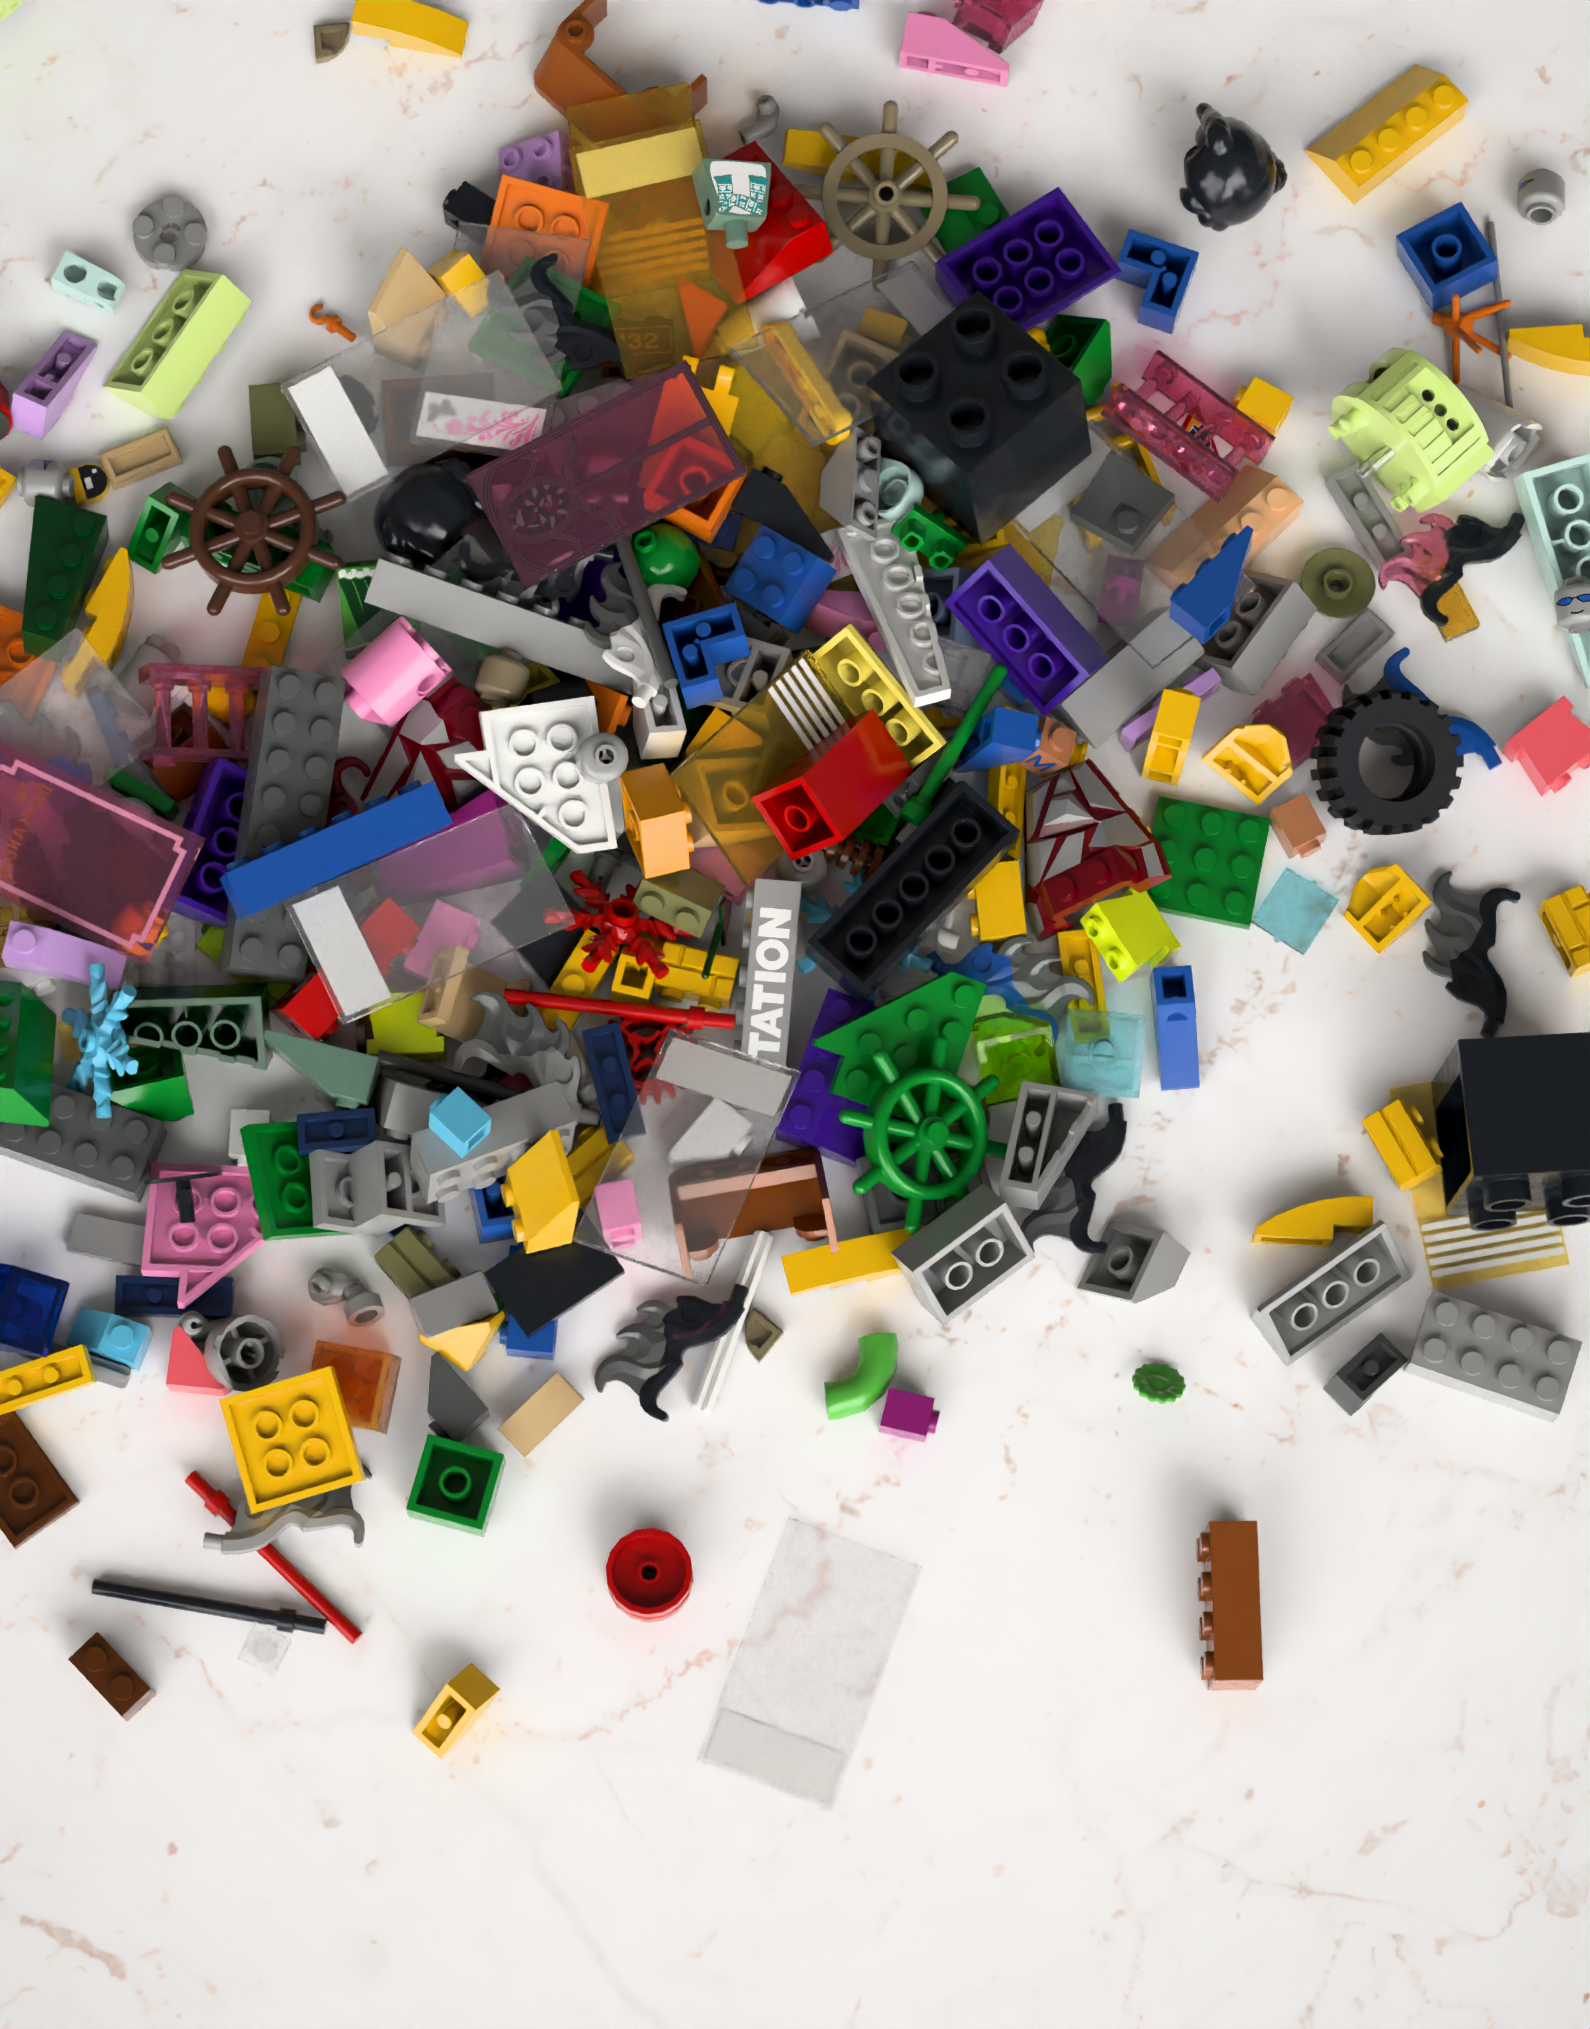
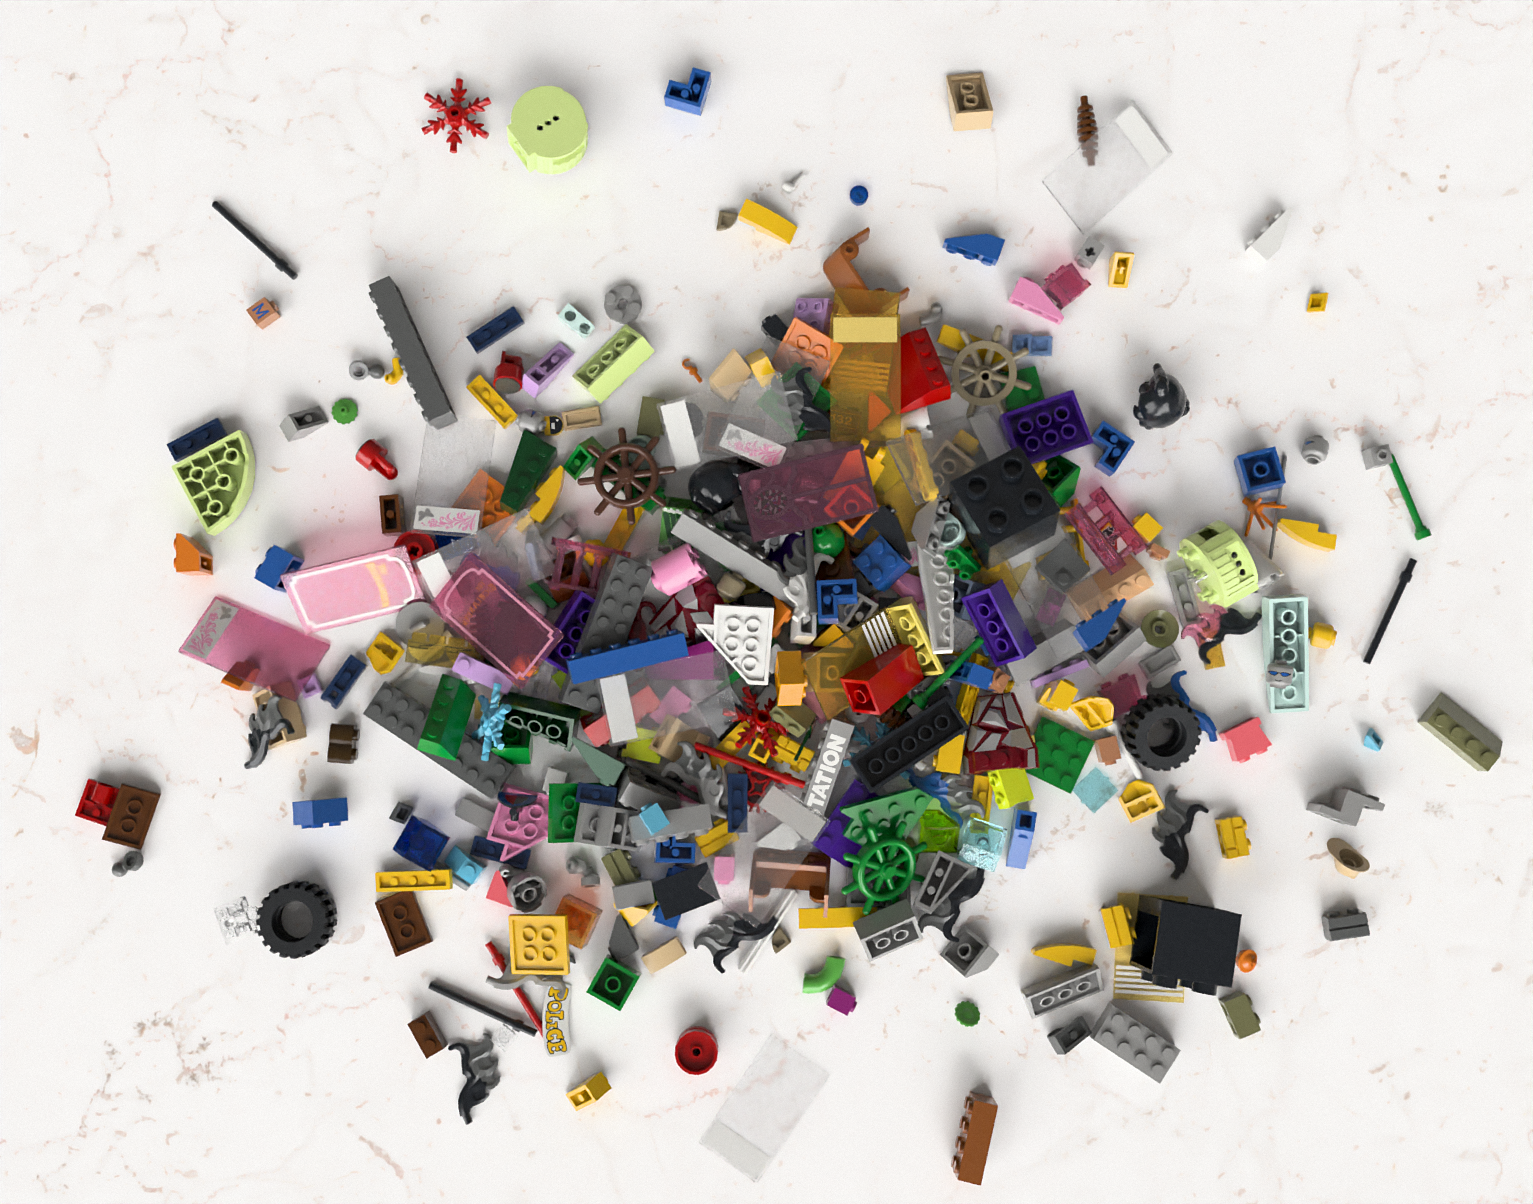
camera: 15 degrees right, 10 degrees up
(231, 1732) = (479, 1073): none -> piece
(360, 1594) = (556, 1022): none -> sticker
(542, 1196) = (686, 858): yellow slope -> none
(591, 765) = (775, 640): light grey head -> none
(732, 197) = (907, 361): torso -> none
(975, 130) = (1036, 344): none -> medium blue slope
(1296, 446) = (1157, 552): none -> nougat plate
(1299, 784) = (1114, 730): none -> white piece
(1388, 131) = (1246, 395): yellow slope -> none

